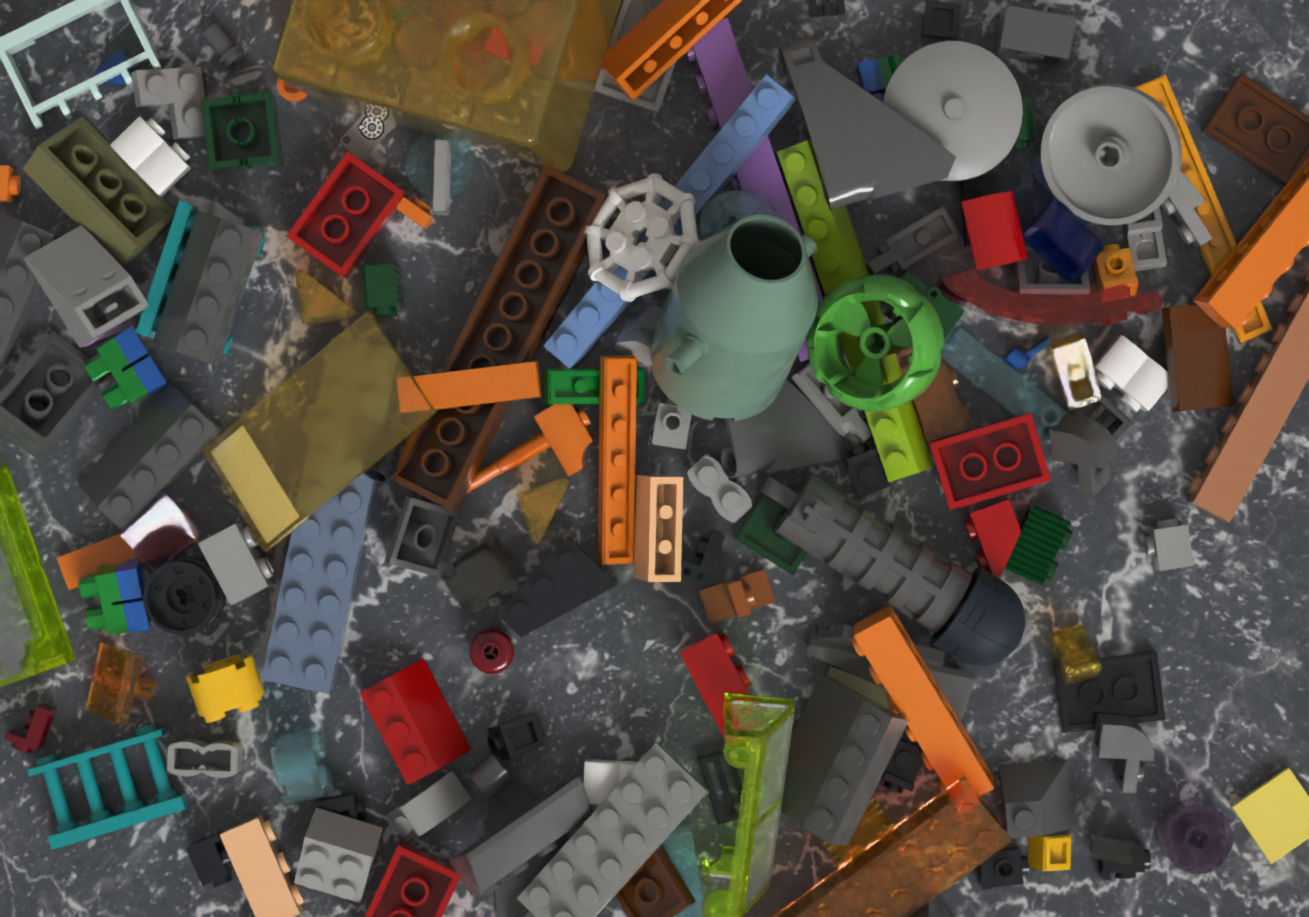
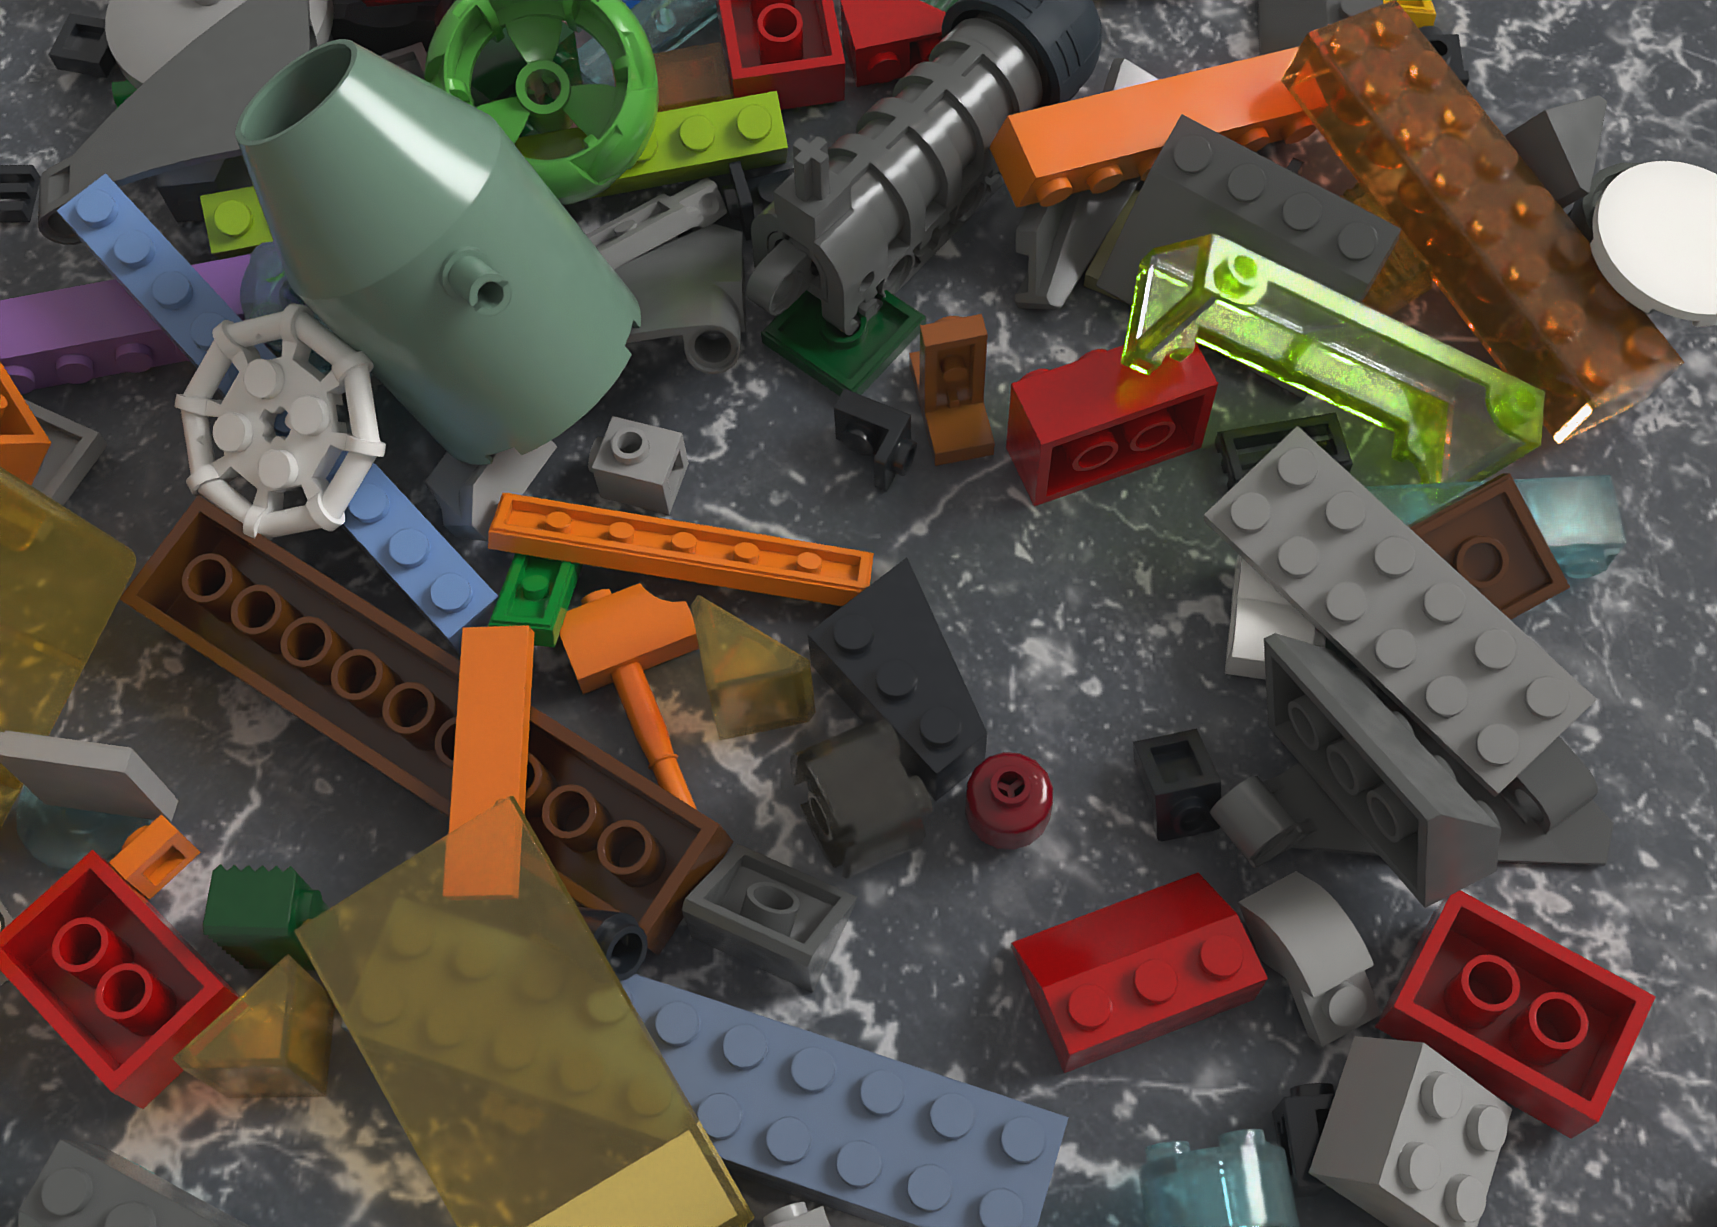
camera: 80 degrees left, 25 degrees down
(658, 528) = (814, 493): light nougat brick -> none
(726, 496) = (755, 402): light grey brick -> none

